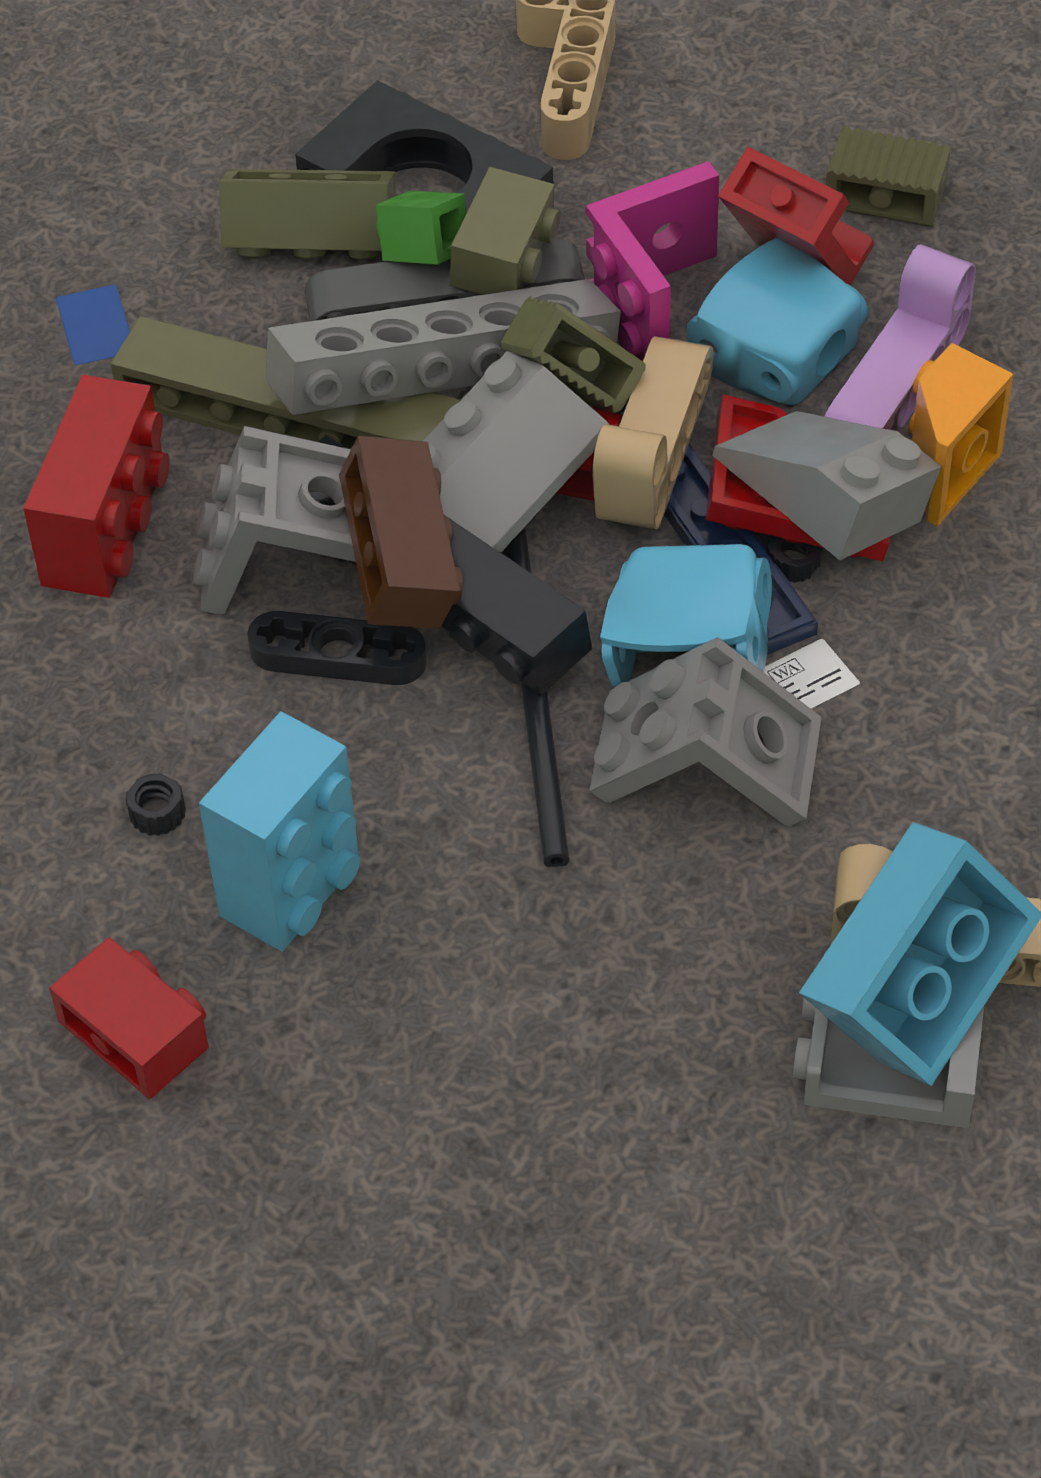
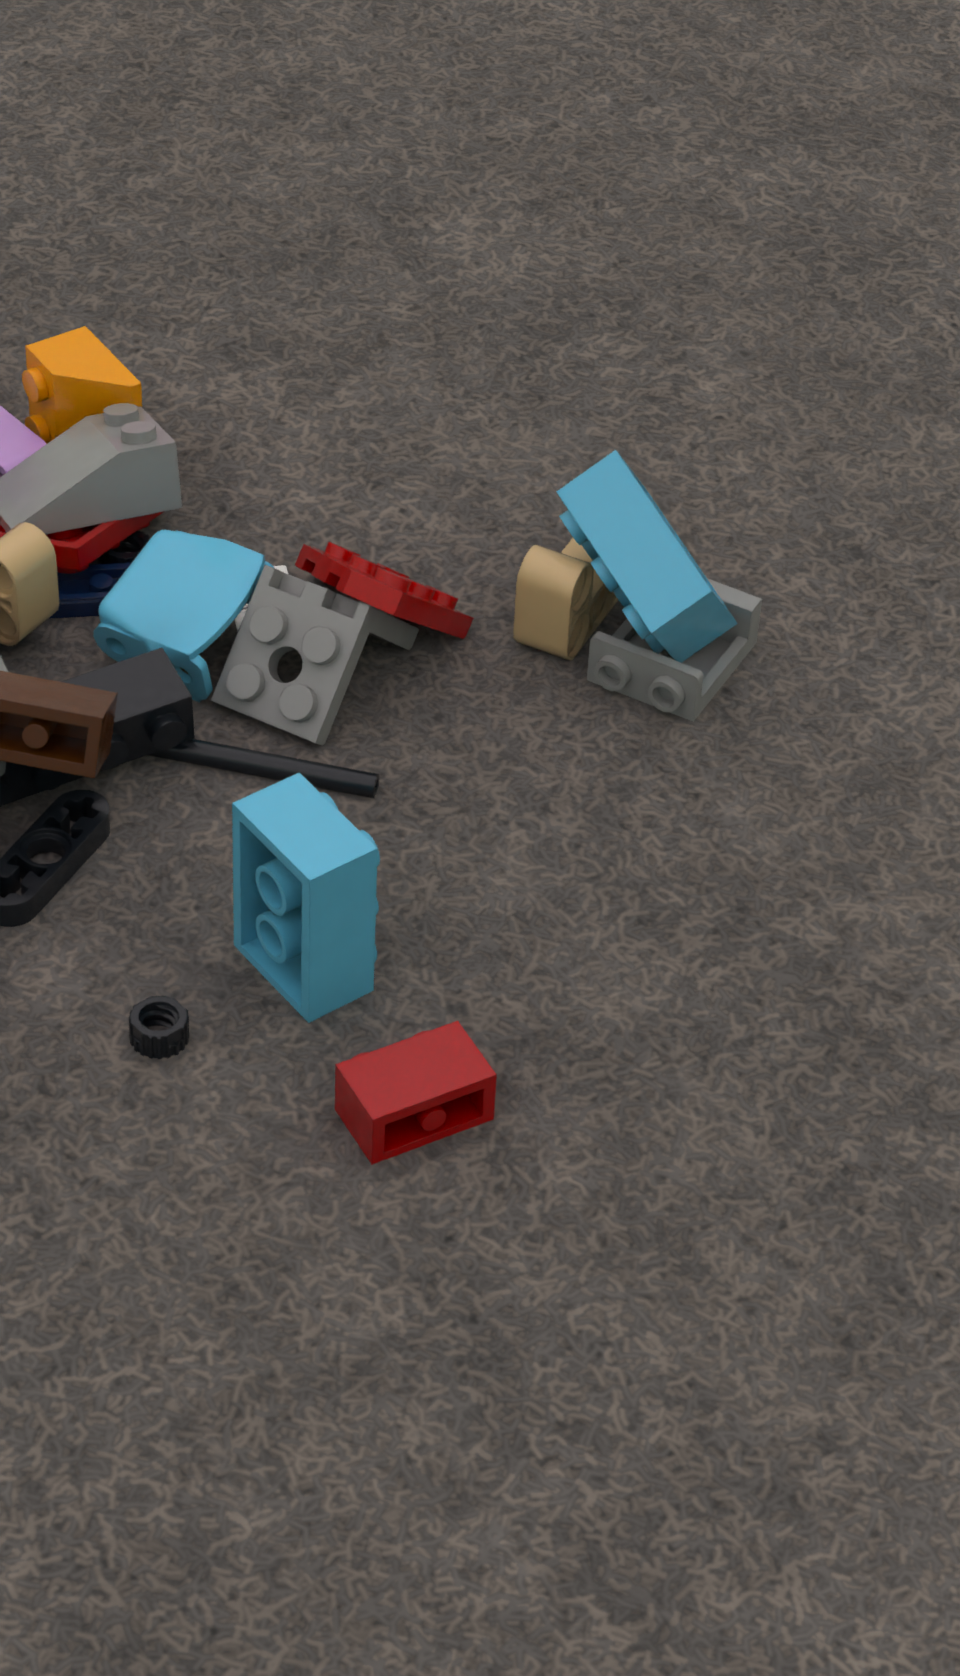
camera: 75 degrees left, 10 degrees down
(796, 757) = (384, 588): none -> red plate

